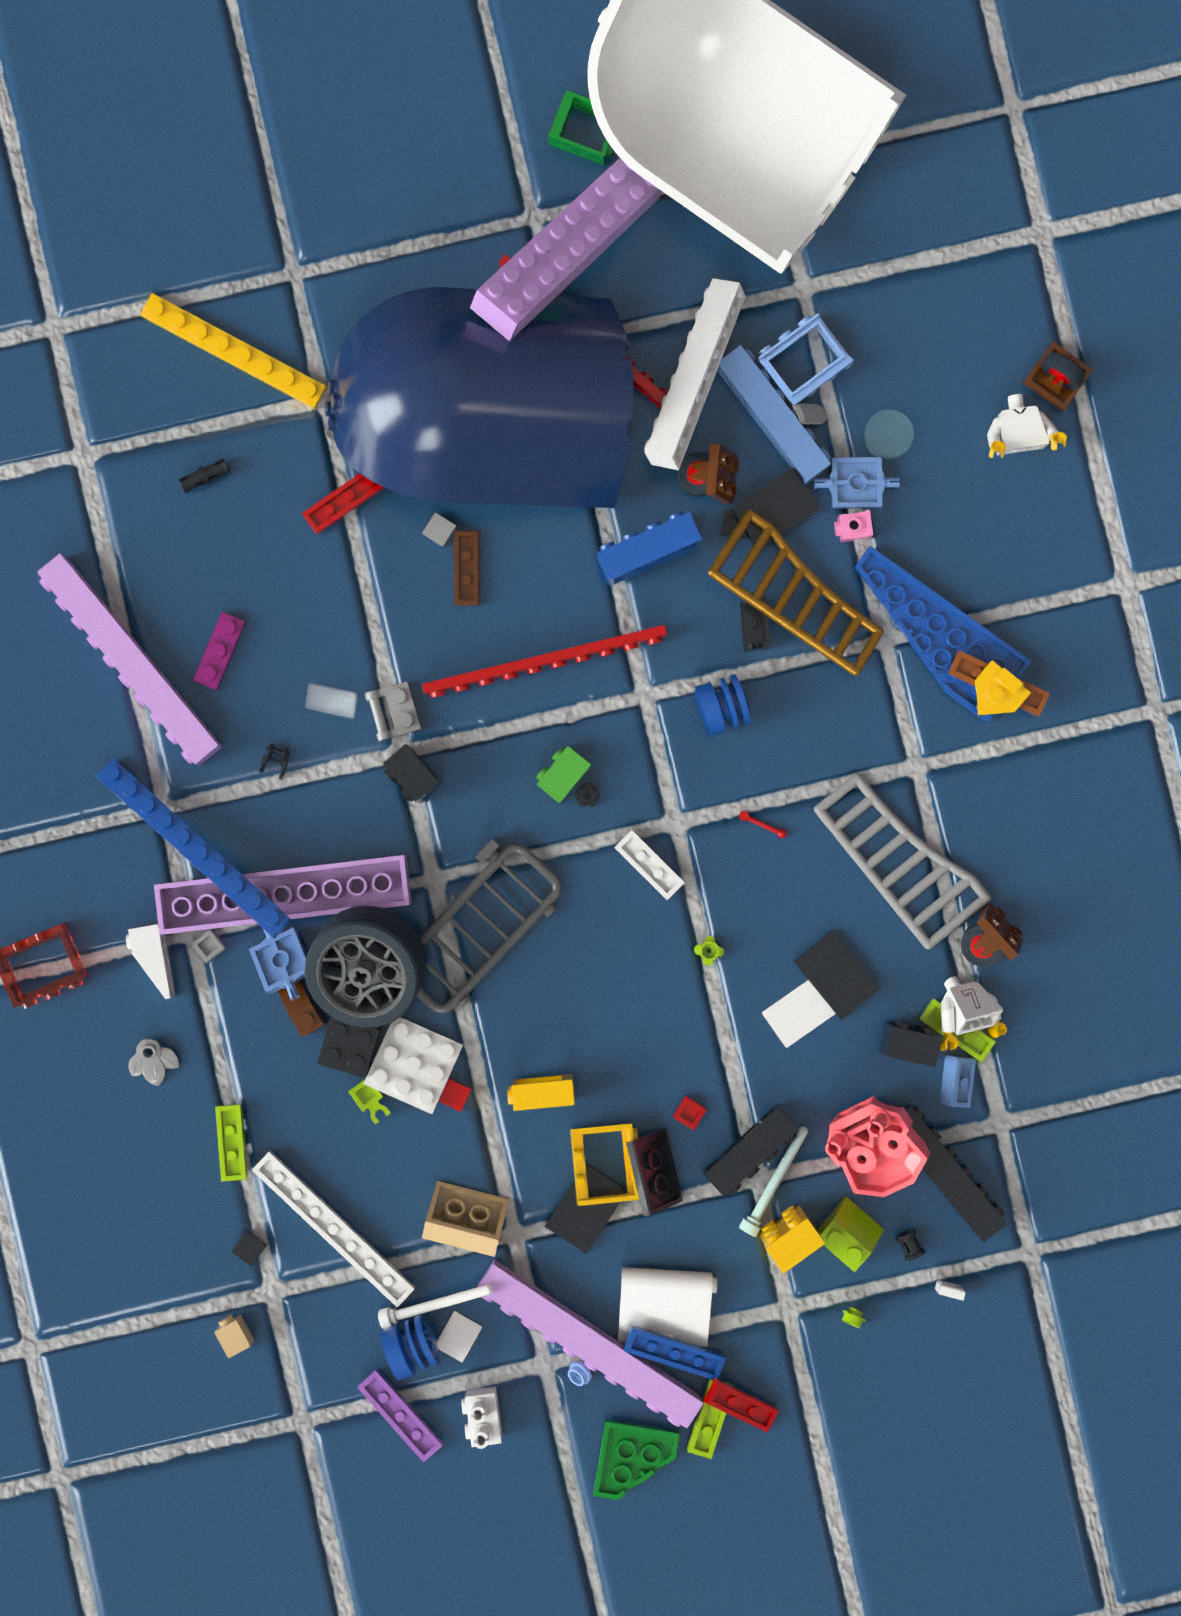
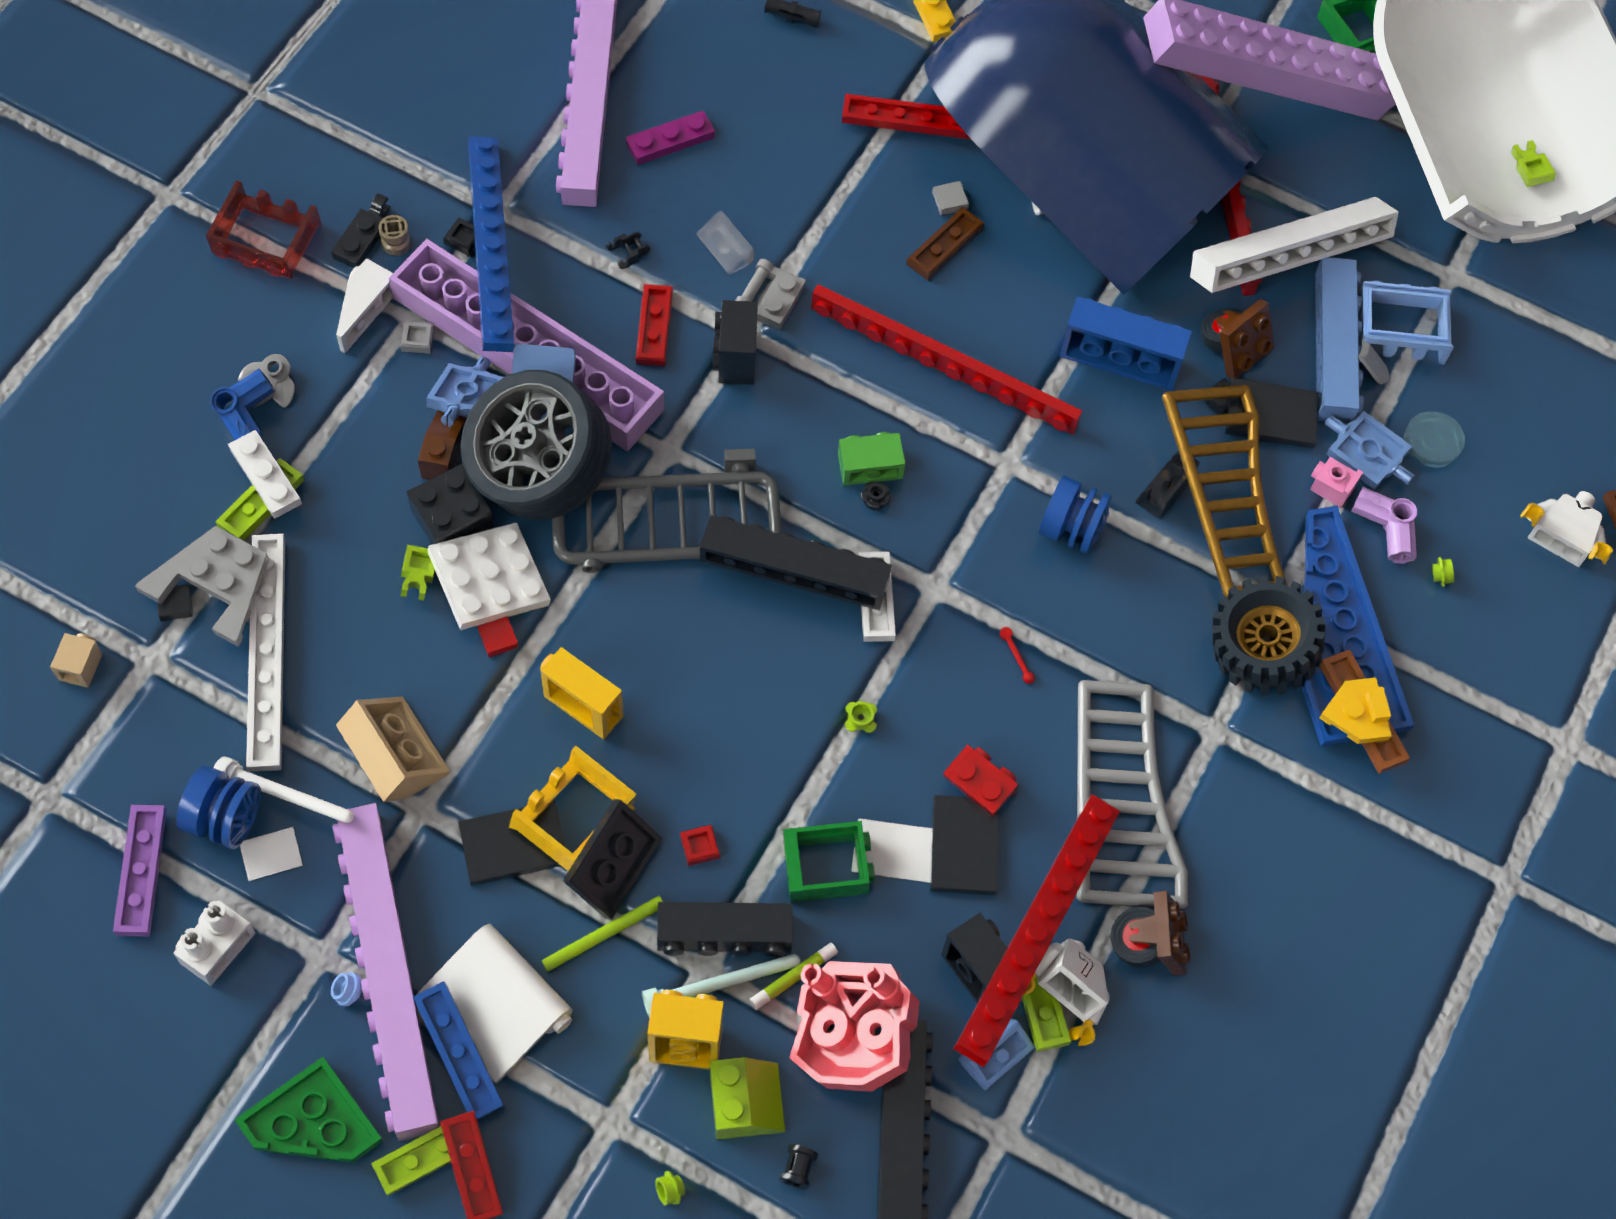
camera: 35 degrees right, 25 degrees down
(101, 907) = (361, 233): none -> black plate
(128, 891) = (394, 235): none -> dark tan wheel
(162, 850) = (461, 236): none -> black tile
(164, 1104) = (244, 395): none -> blue piece
(219, 1127) = (265, 474): none -> white plate
(259, 1207) = (220, 567): none -> light grey wing
(318, 909) = (547, 358): none -> medium blue slope
(343, 800) = (654, 325): none -> red tile
(586, 895) = (795, 562): none -> black brick
(685, 1212) = (601, 934): none -> lime bar
(755, 1080) = (827, 834): none -> green window
(794, 153) = (1532, 167): none -> lime plate
(810, 1140) = (791, 977): none -> lime bar
(814, 929) = (981, 779): none -> red bracket
(898, 522) = (1399, 532): none -> lavender piece
(902, 713) = (1297, 636): none -> black wheel
(931, 1004) = (1036, 932): none -> red plate
(967, 532) = (1443, 571): none -> lime plate

